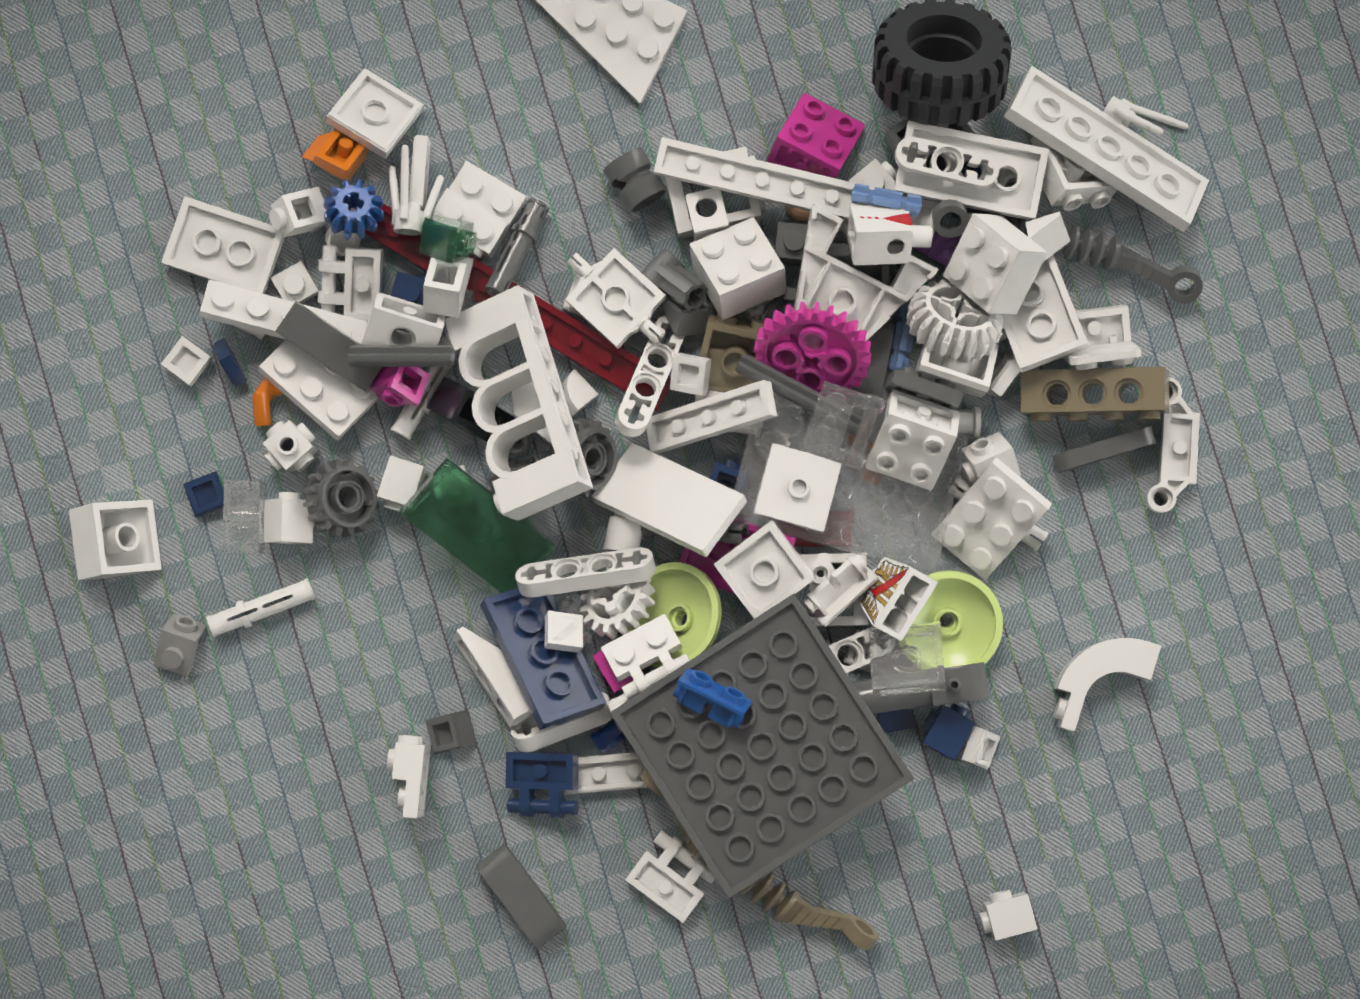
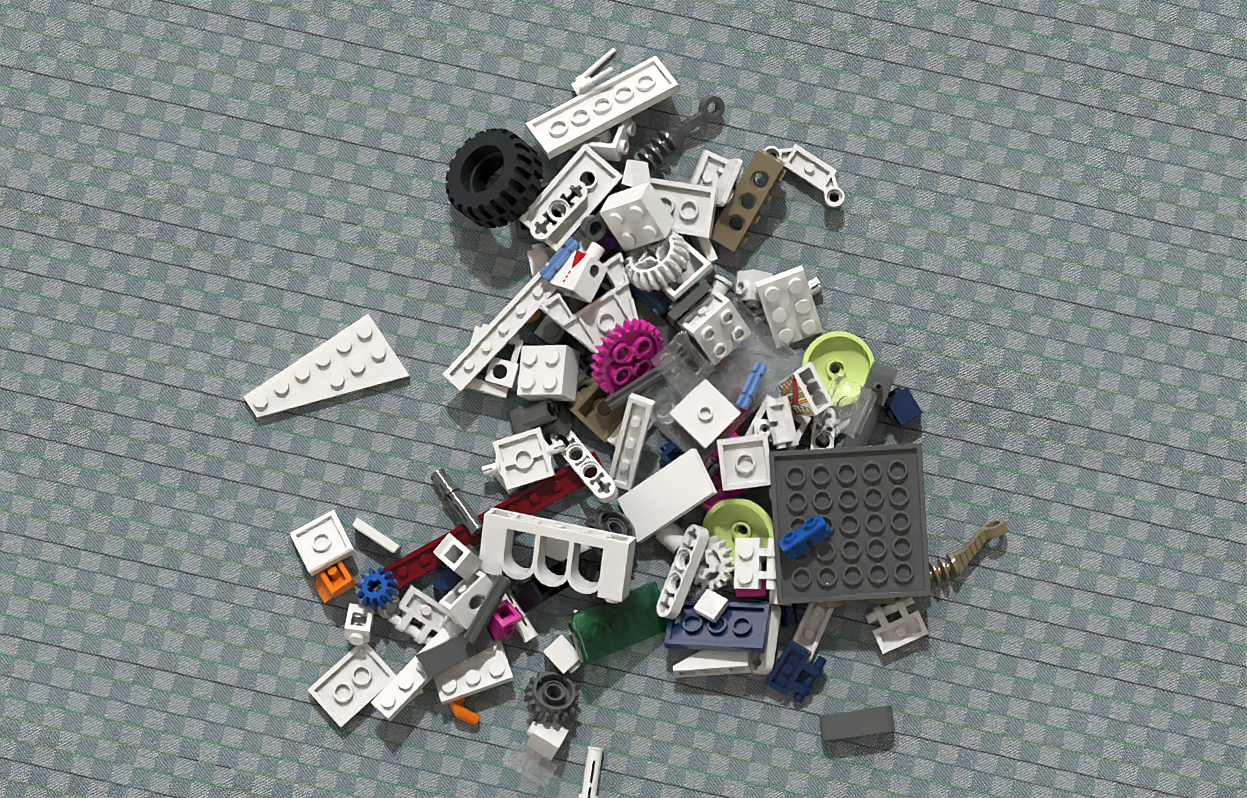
camera: 60 degrees left, 0 degrees up
(186, 361) = (410, 745): white plate -> none
(205, 494) = (500, 780): dark blue tile -> none
(229, 362) = (426, 719): dark blue tile -> none
(295, 283) = (400, 652): white plate -> none
(299, 456) = (511, 707): white brick -> none
(407, 216) = (400, 558): white plant -> none
(410, 763) = (739, 746): white plate -> none
(447, 238) = (430, 541): clear green slope -> none
(451, 731) = (732, 710): dark grey slope -> none
(481, 200) = (418, 513): white plate -> none
(577, 392) = (567, 514): white tile -> none
(636, 182) = (456, 405): dark grey wheel -> none
(690, 374) = (596, 439): white plate -> none
(815, 138) = (494, 280): dark pink bracket -> none
(865, 526) = (751, 385): none -> medium blue axle
(896, 720) = (878, 434): dark blue tile -> none
(980, 747) = (923, 392): white tile -> none
(1007, 915) = (1033, 433): white brick -> none
(1104, 449) = (784, 213): dark grey beam -> none
(1118, 655) = (910, 293): white arch -> none

